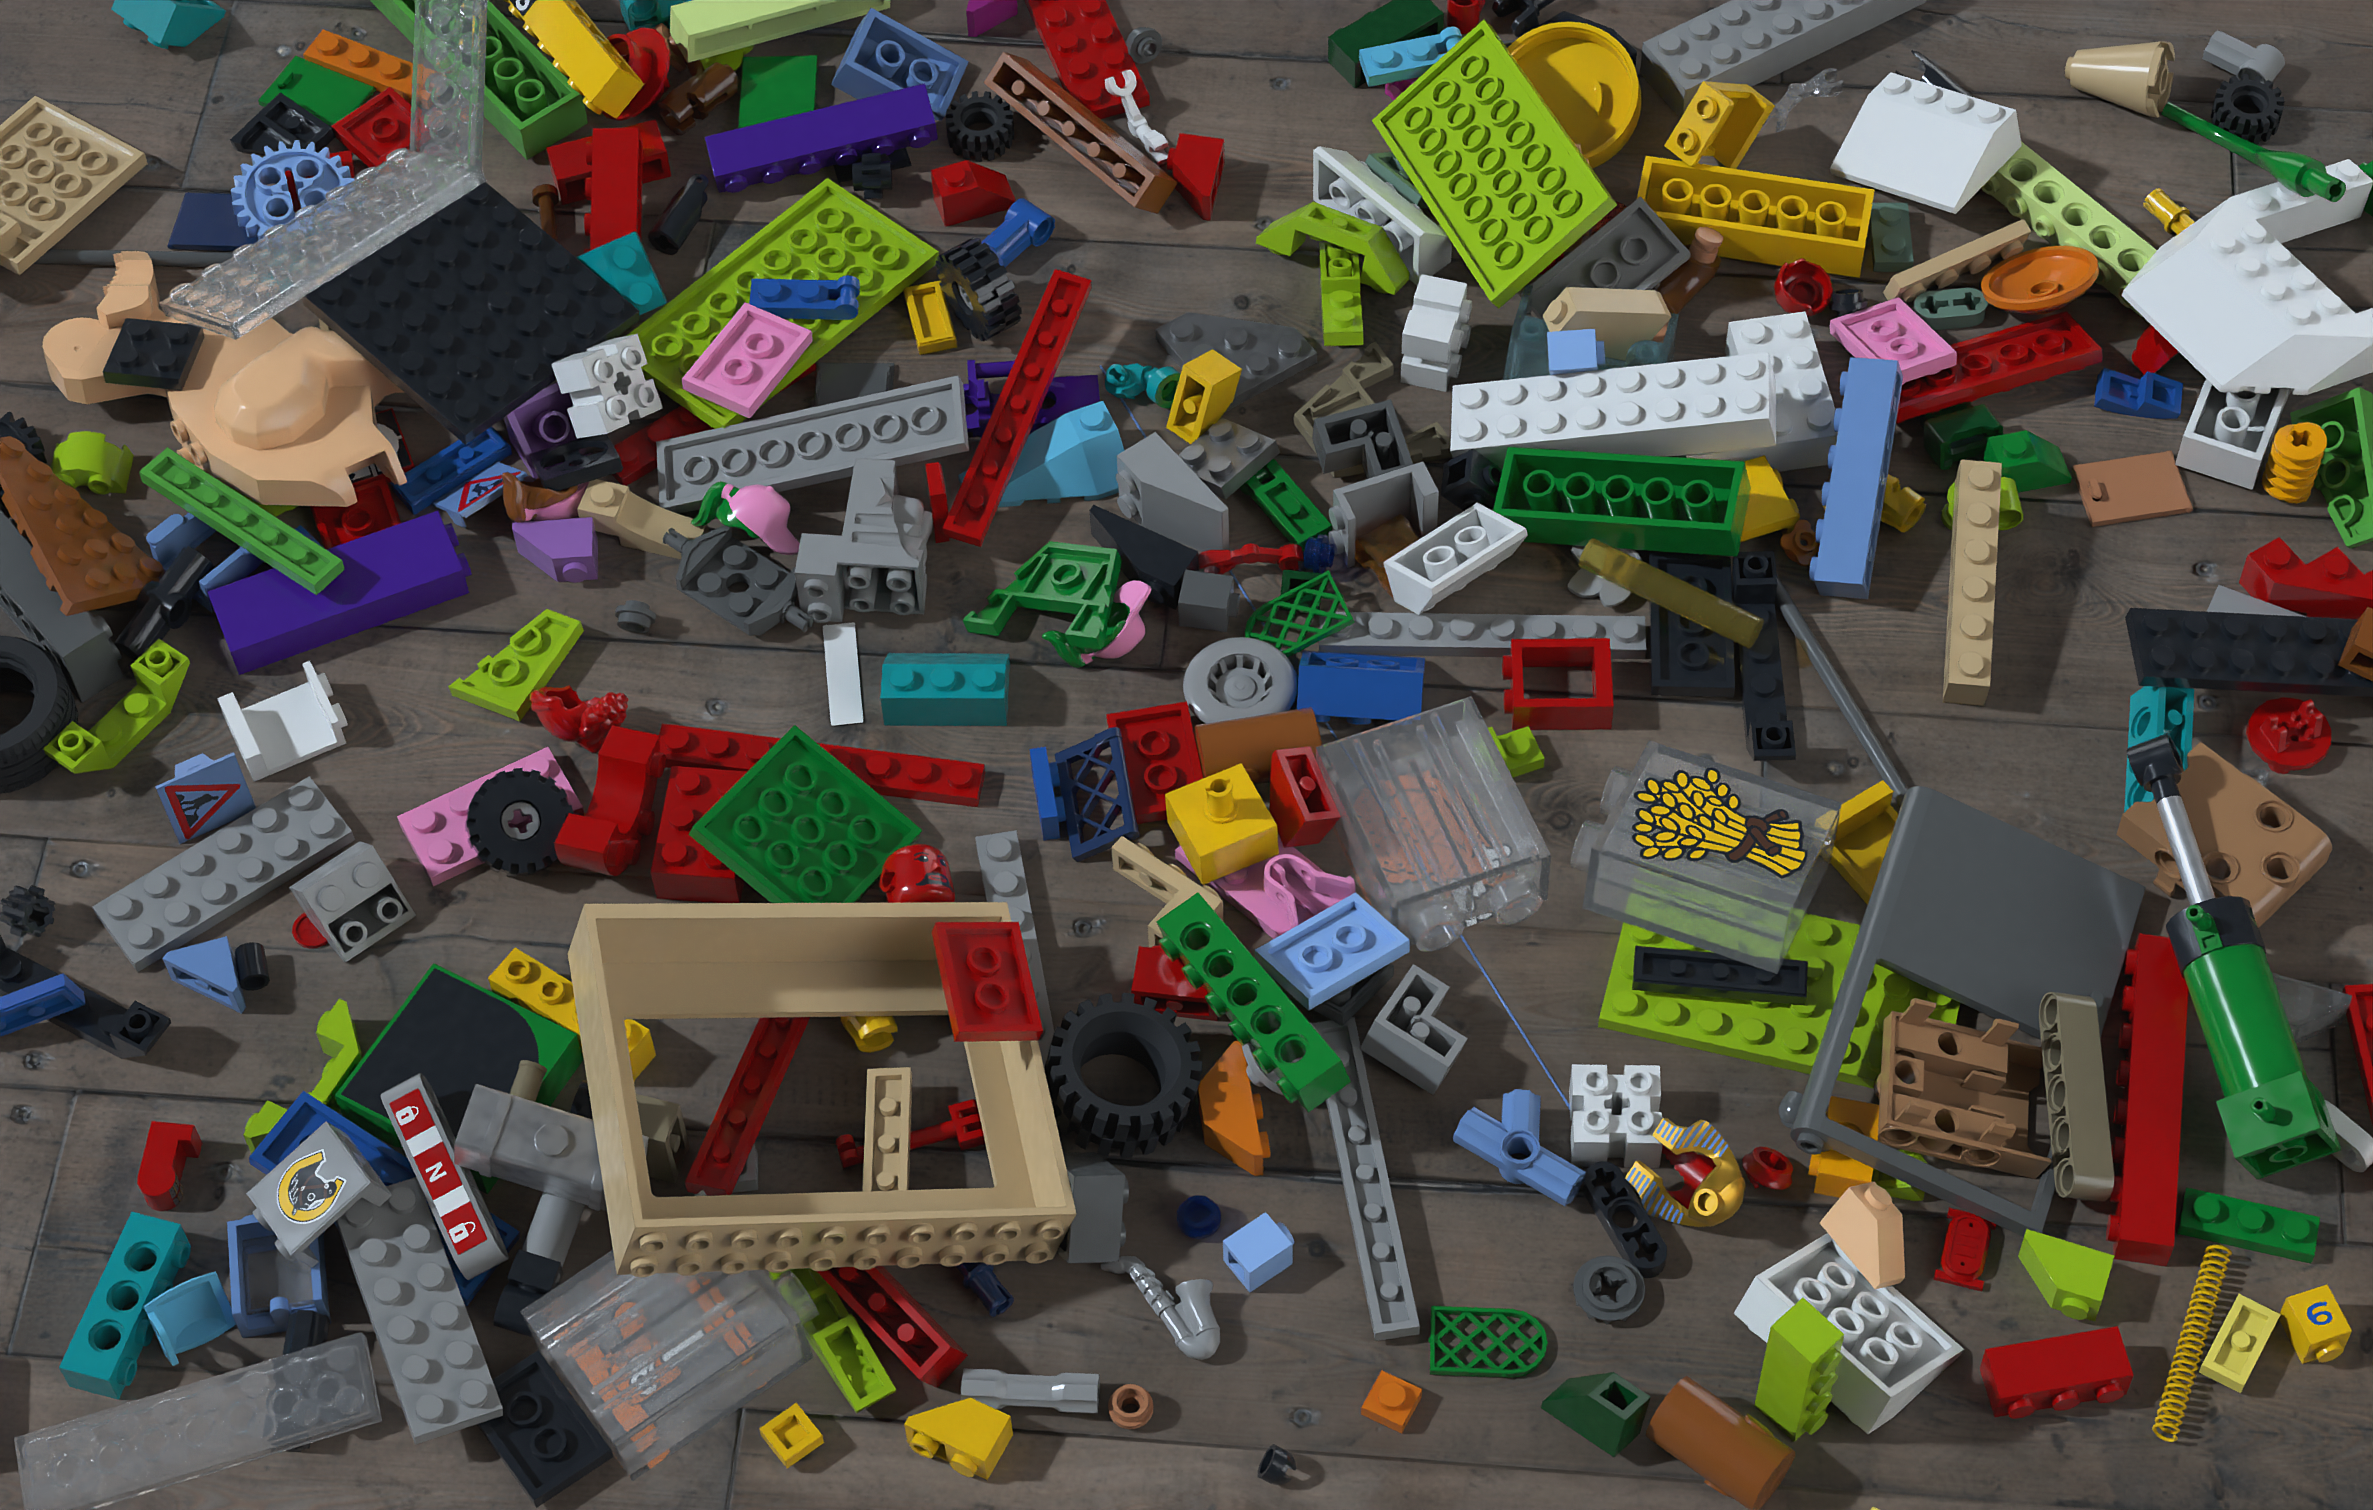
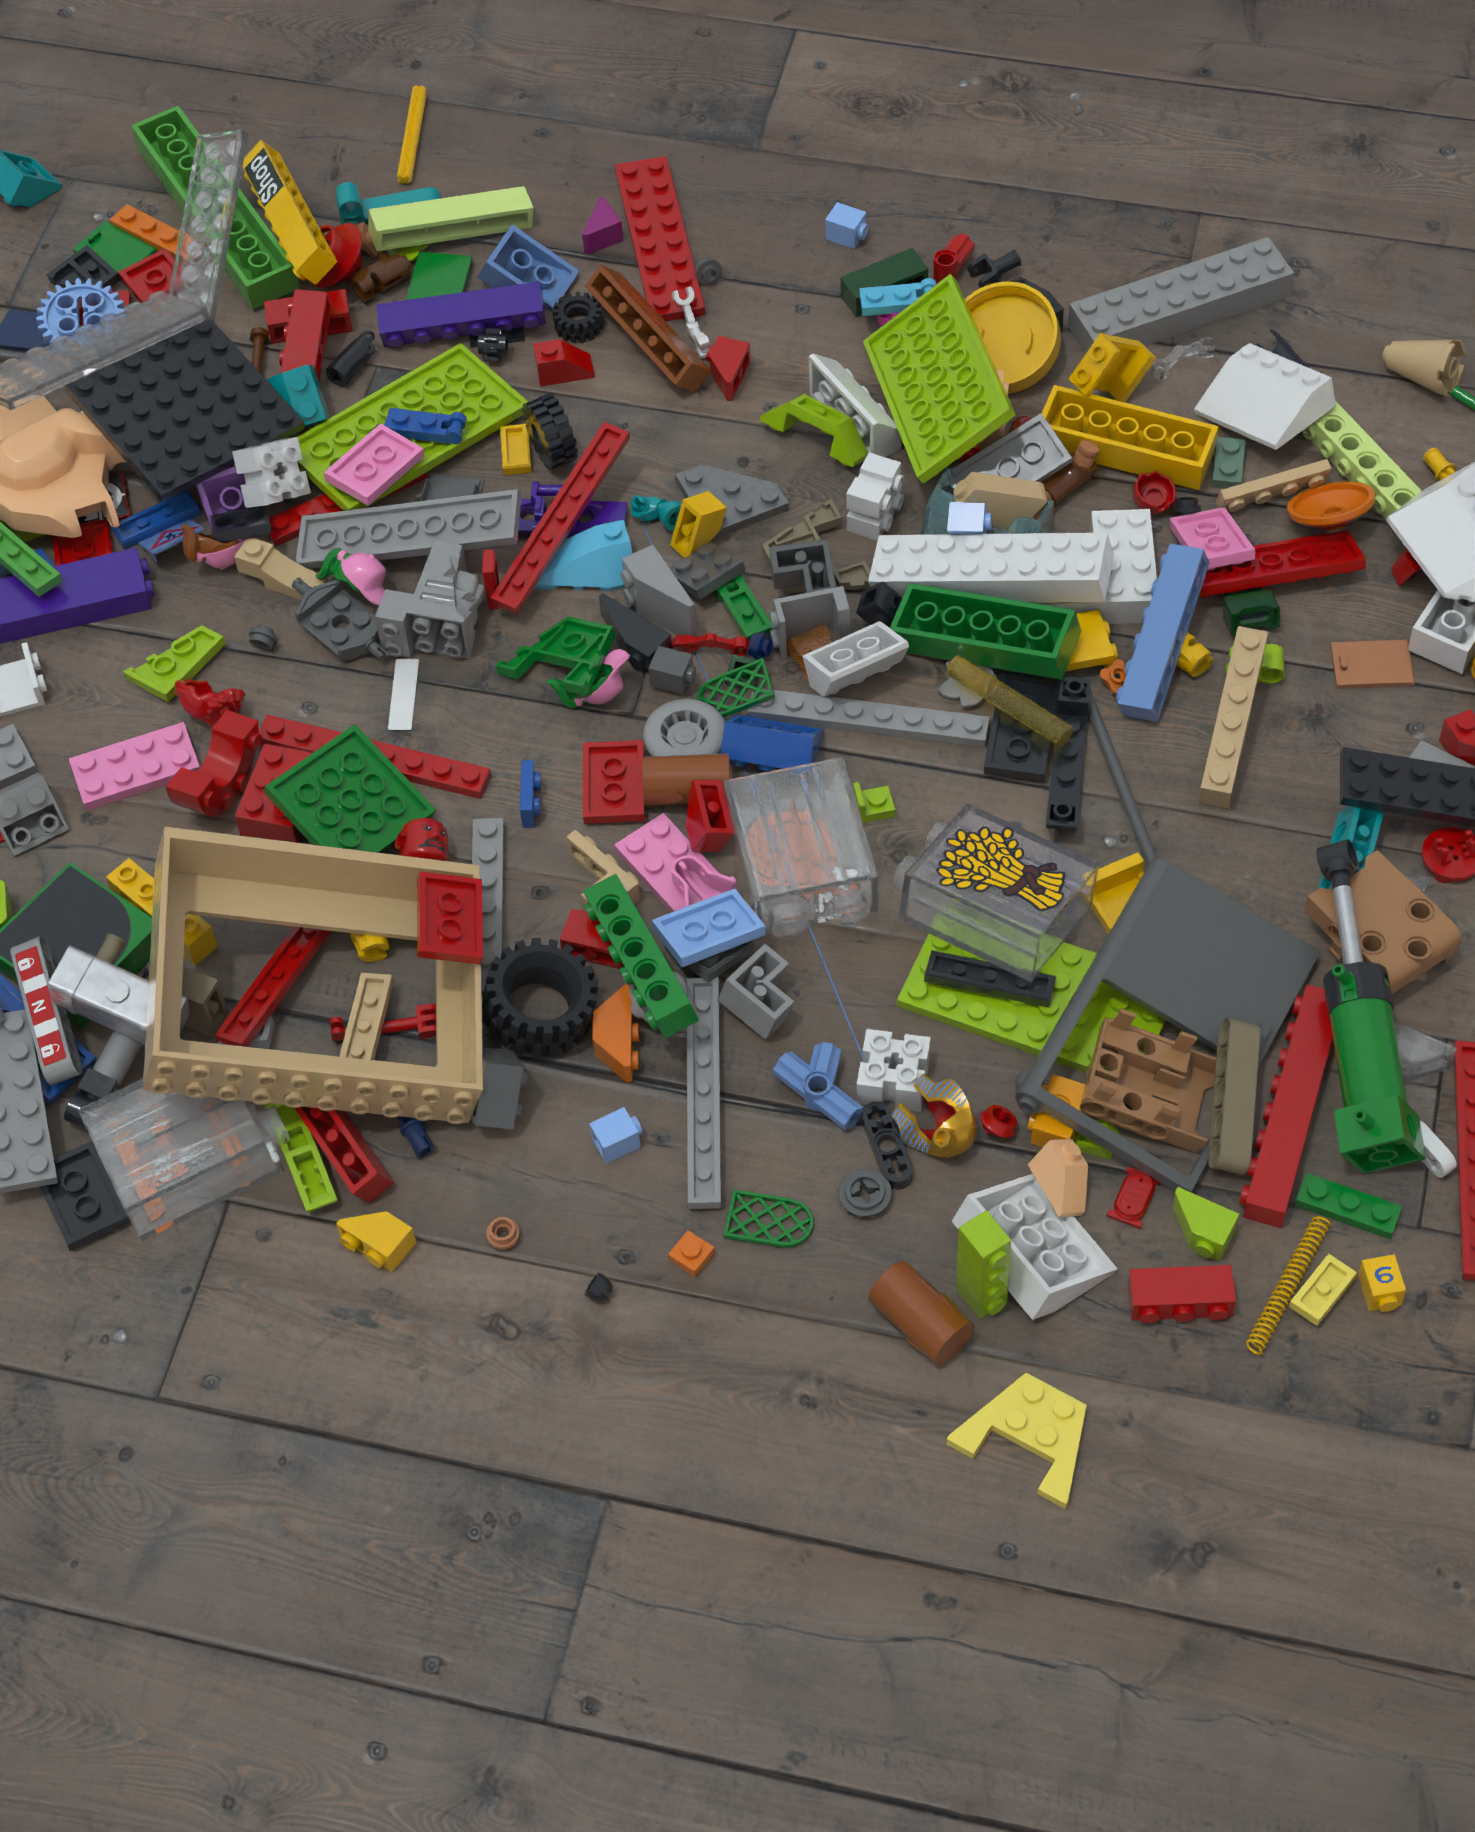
camera: 10 degrees right, 0 degrees up
(493, 808) = (133, 758): black bush -> none
(560, 547) = (220, 583): medium lavender slope -> none
(791, 1435) = (258, 1223): yellow plate -> none
(945, 689) = (472, 712): teal slope -> none
(1022, 226) = (594, 391): blue piece -> none
(1062, 1392) = (455, 1216): light grey axle -> none
(1090, 751) = (549, 789): dark blue window -> none
(1190, 1321) = (556, 1179): light grey piece -> none
(1198, 1217) = (578, 1105): clear blue plate -> none
(1222, 824) = (647, 828): yellow brick -> none
(1340, 296) = (813, 464): lime slope -> none
(1390, 170) = (867, 377): sand green plate -> none
(1559, 712) = (910, 777): red window -> none
(1600, 1409) = (840, 1278): dark green slope -> none
(1951, 308) = (1262, 519): sand green beam -> none
(2028, 460) = (1295, 635): green slope -> none
(2144, 397) = (1395, 599): blue slope -> none

